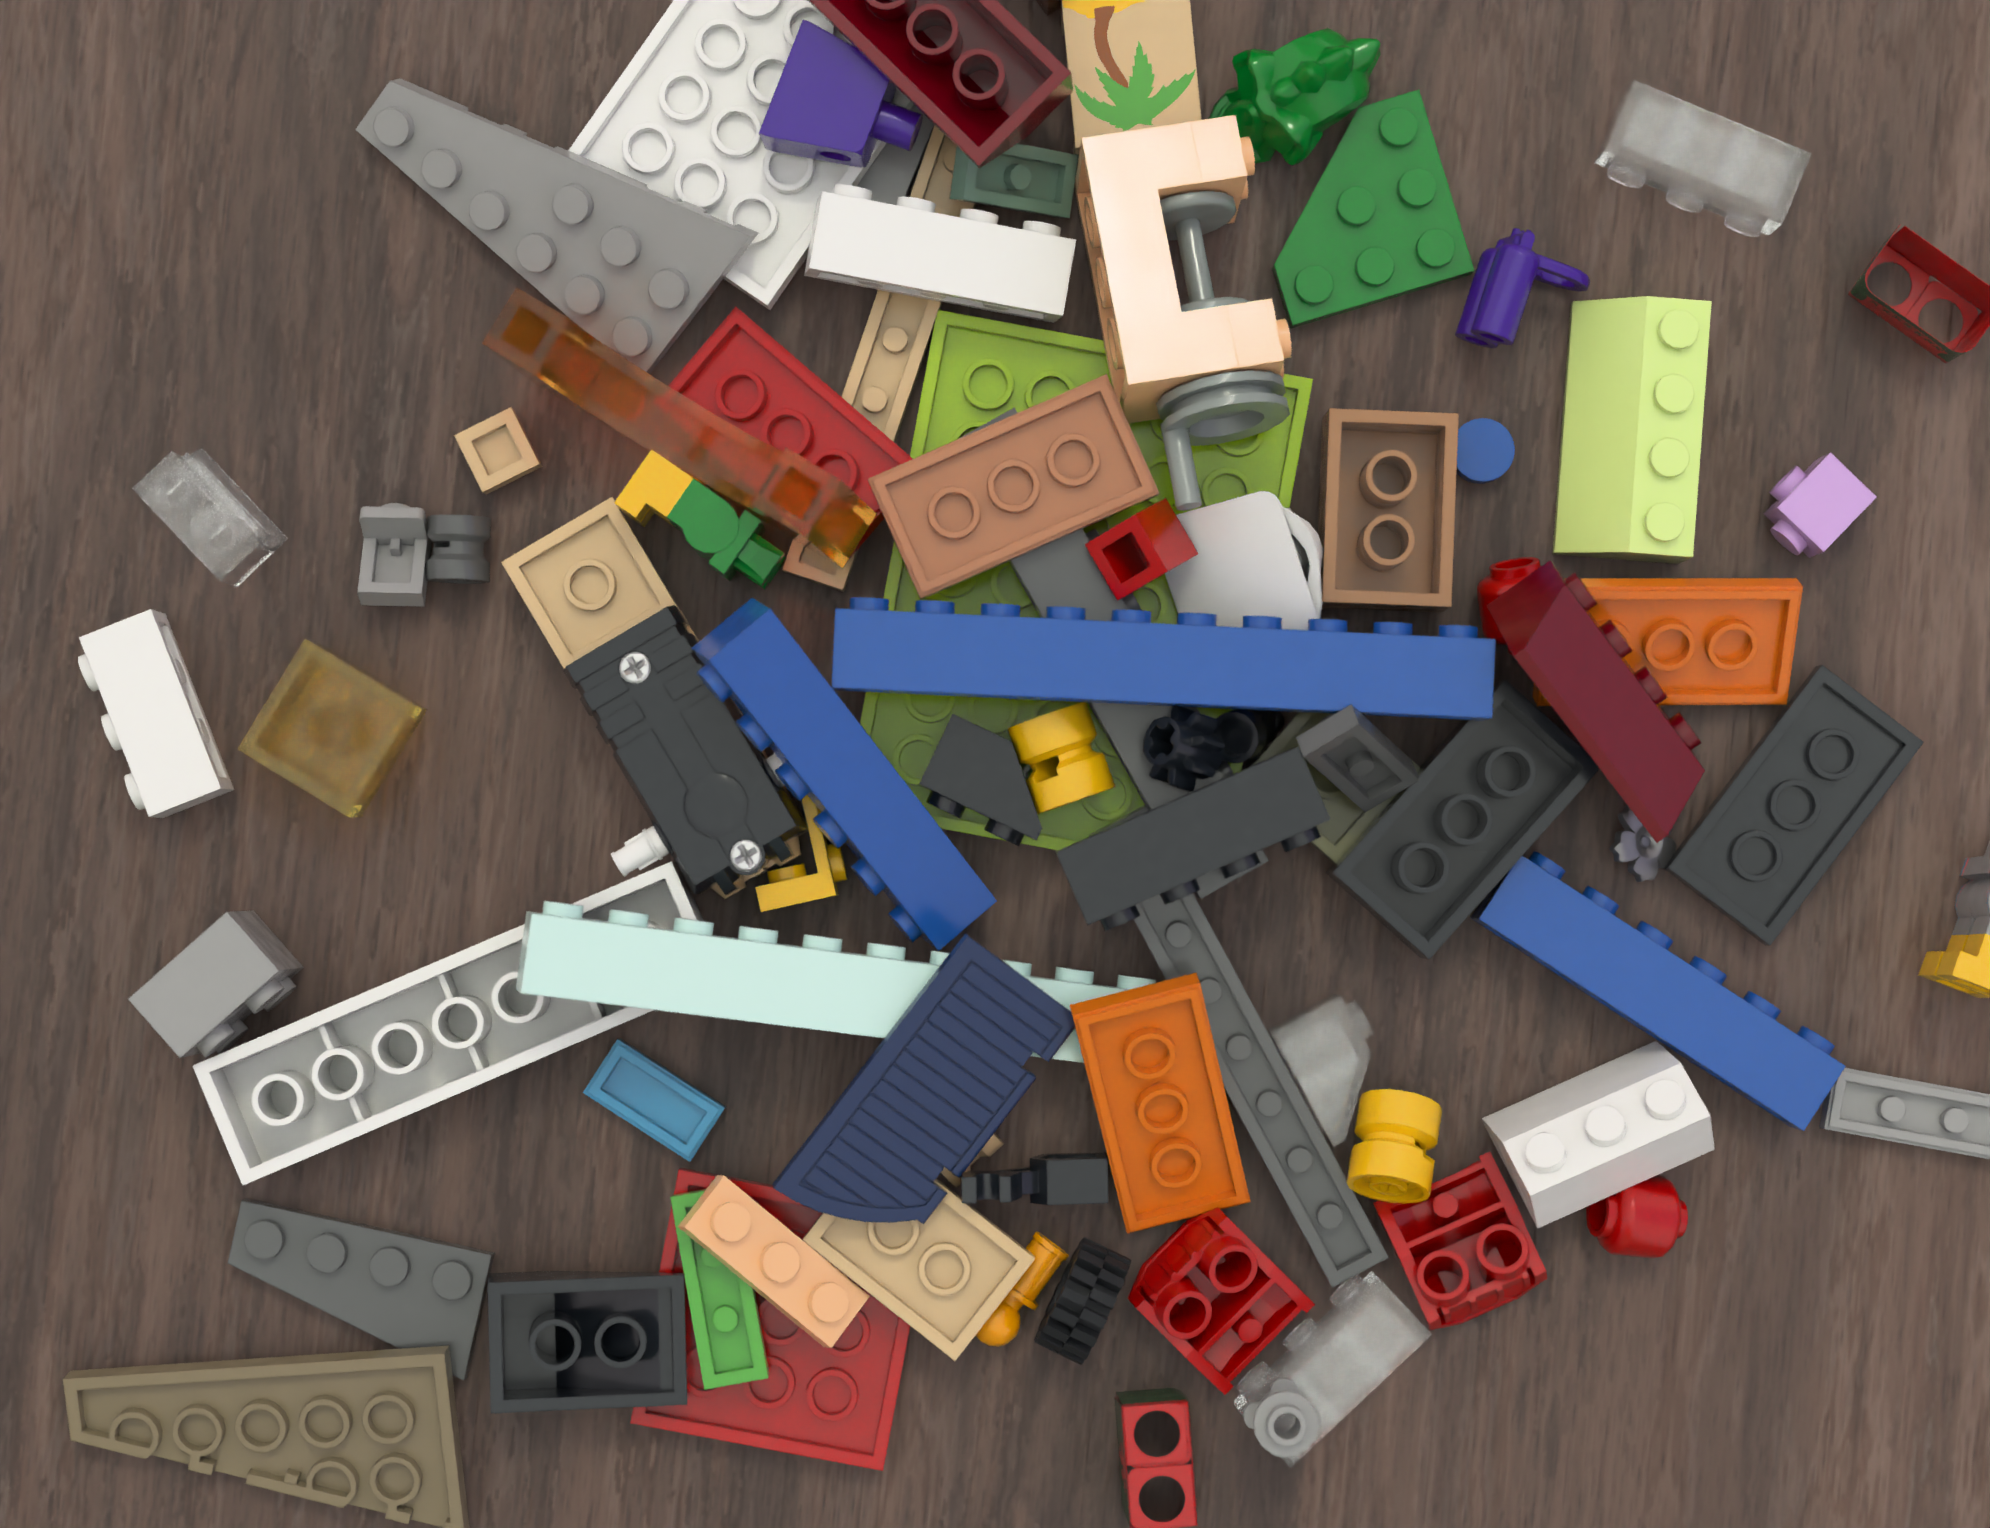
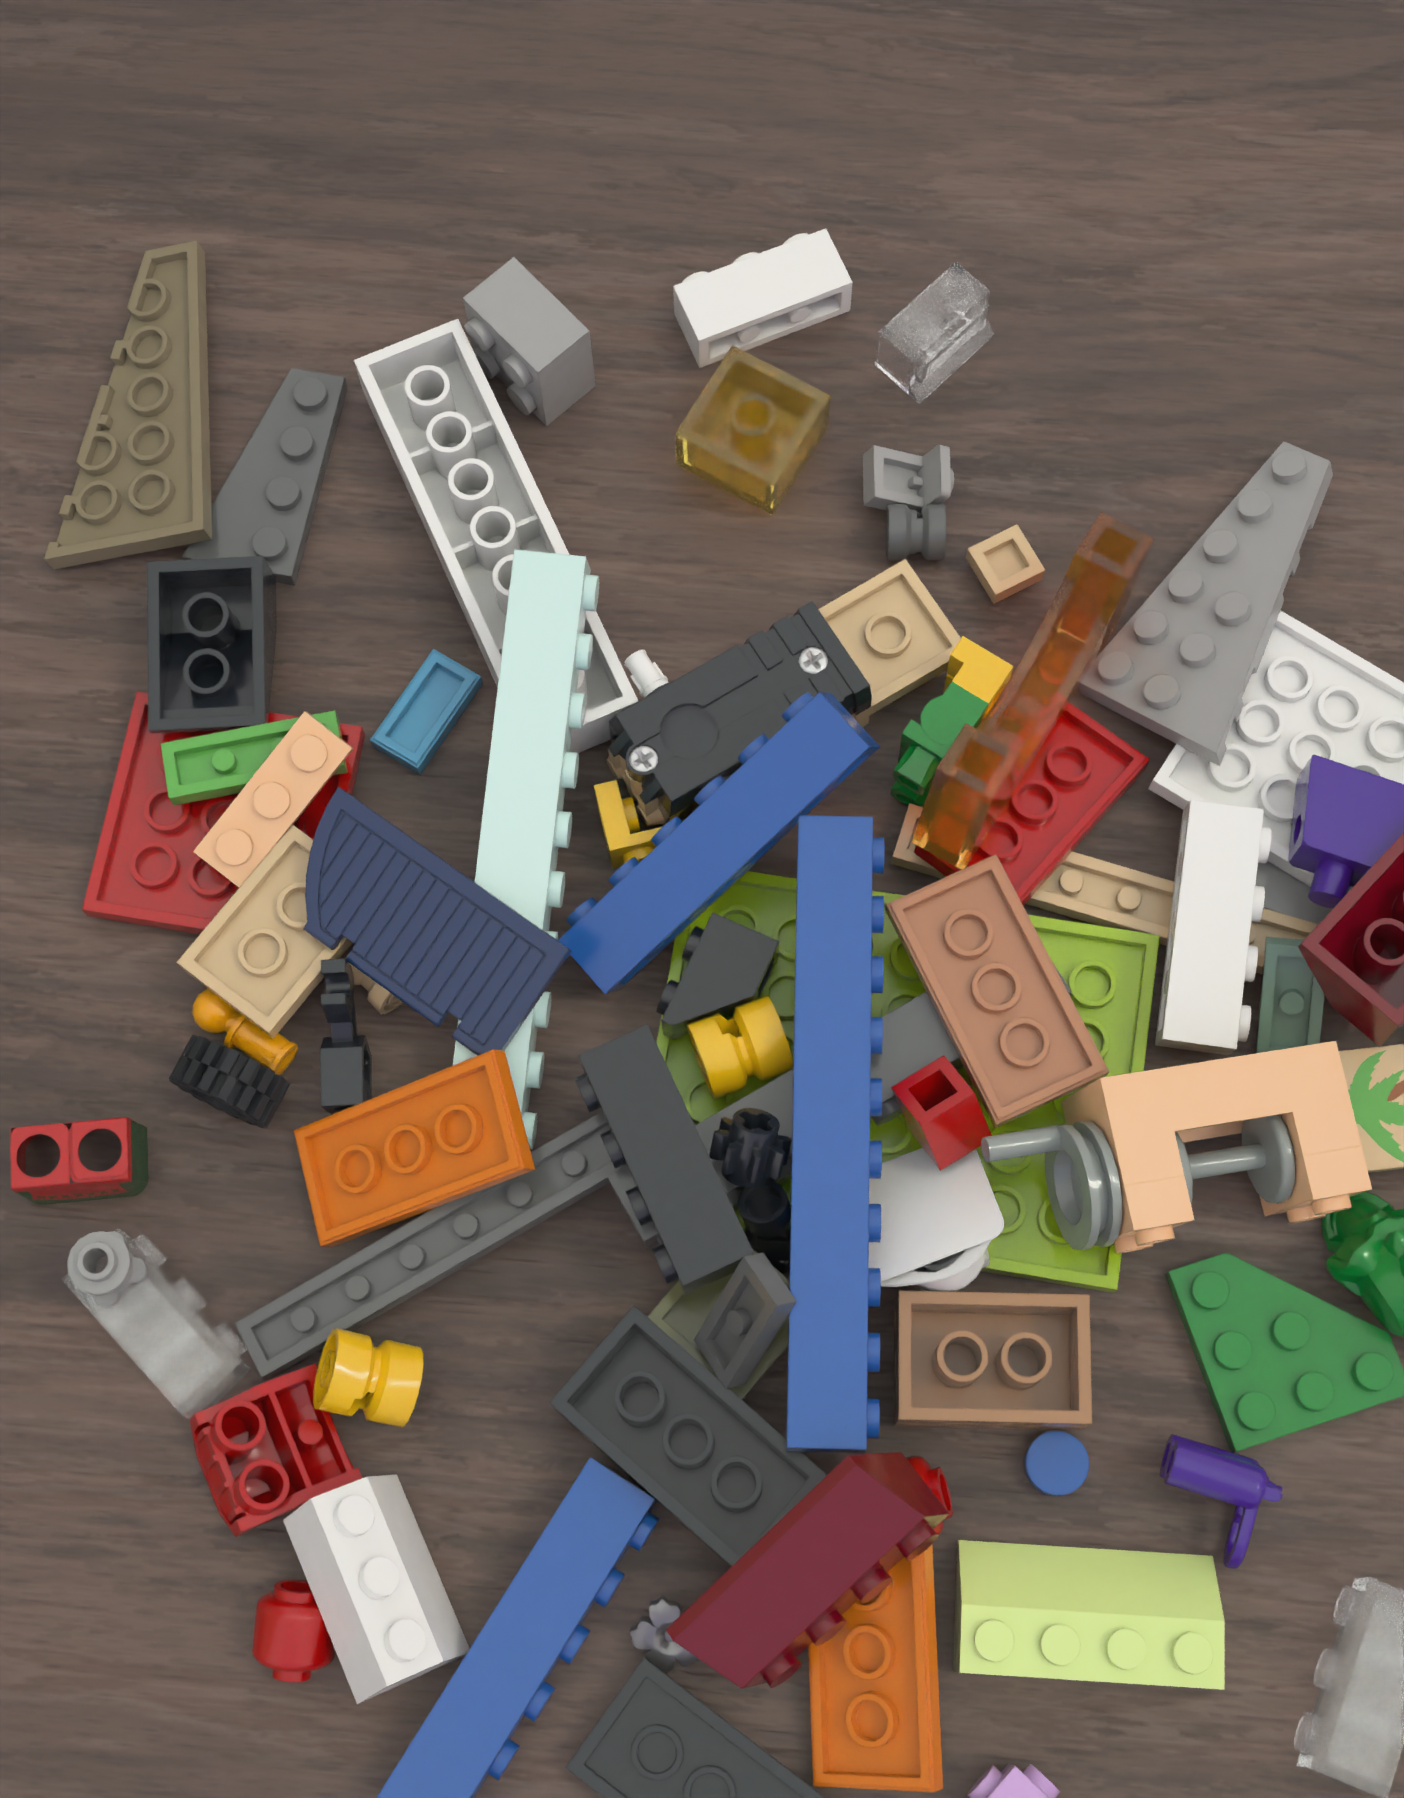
camera: 95 degrees right, 15 degrees down
(1216, 1296) = (228, 1212): red slope -> none
(1327, 1060) = (452, 1314): clear slope -> none

